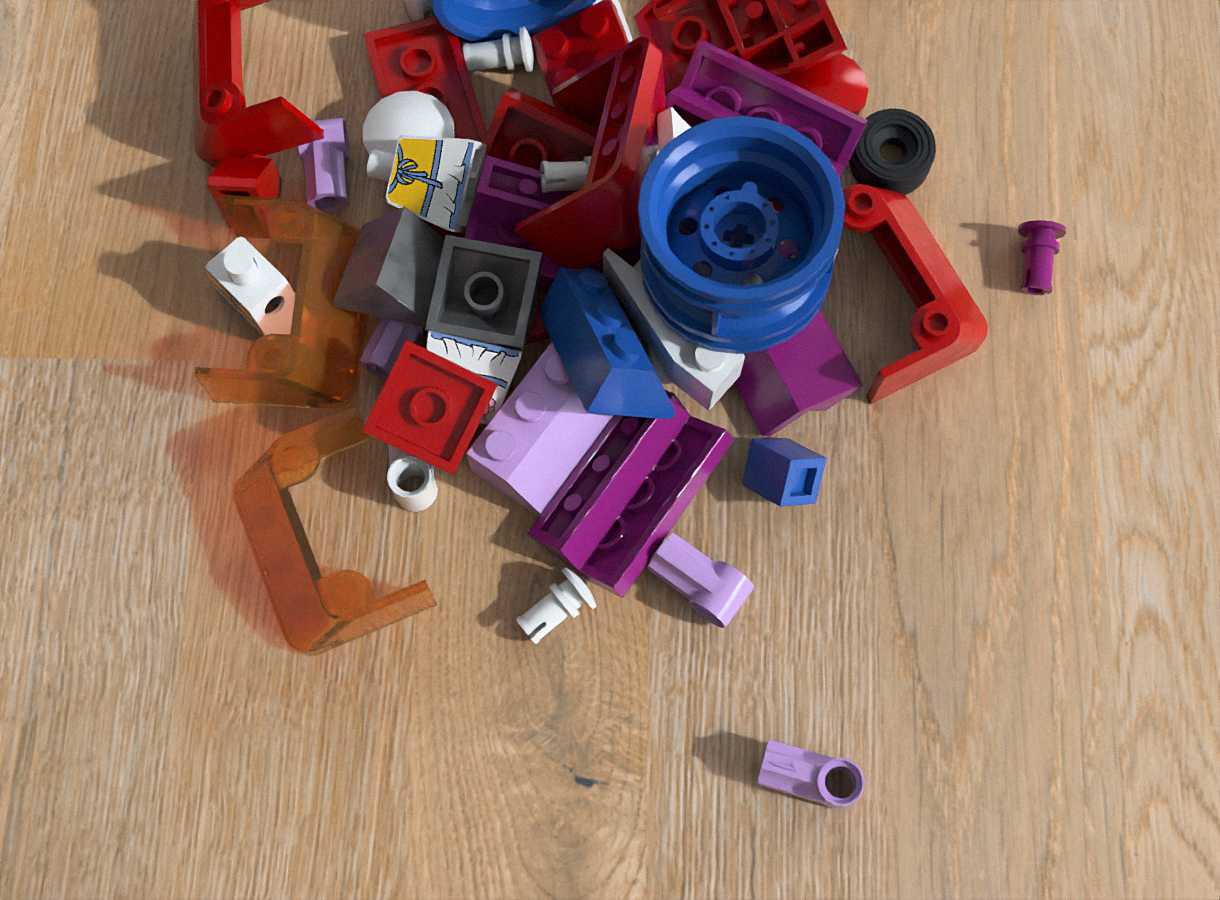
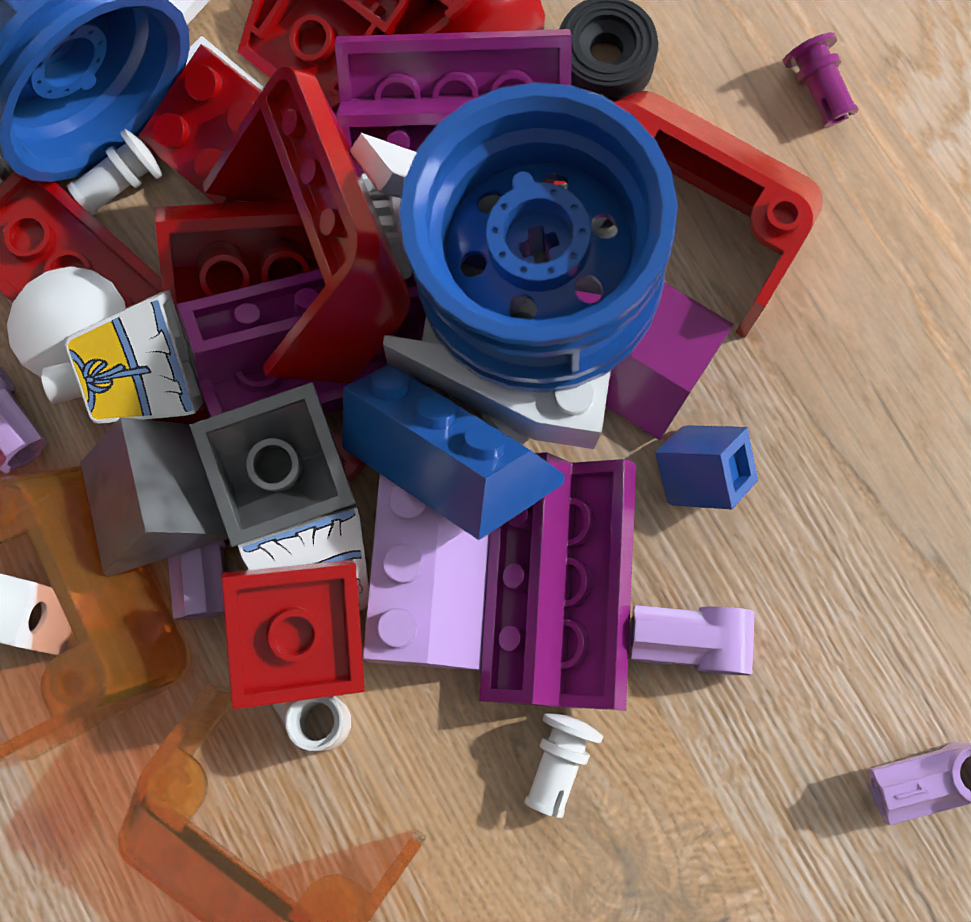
camera: 30 degrees left, 5 degrees up
(564, 175) = (286, 275): white pin -> none

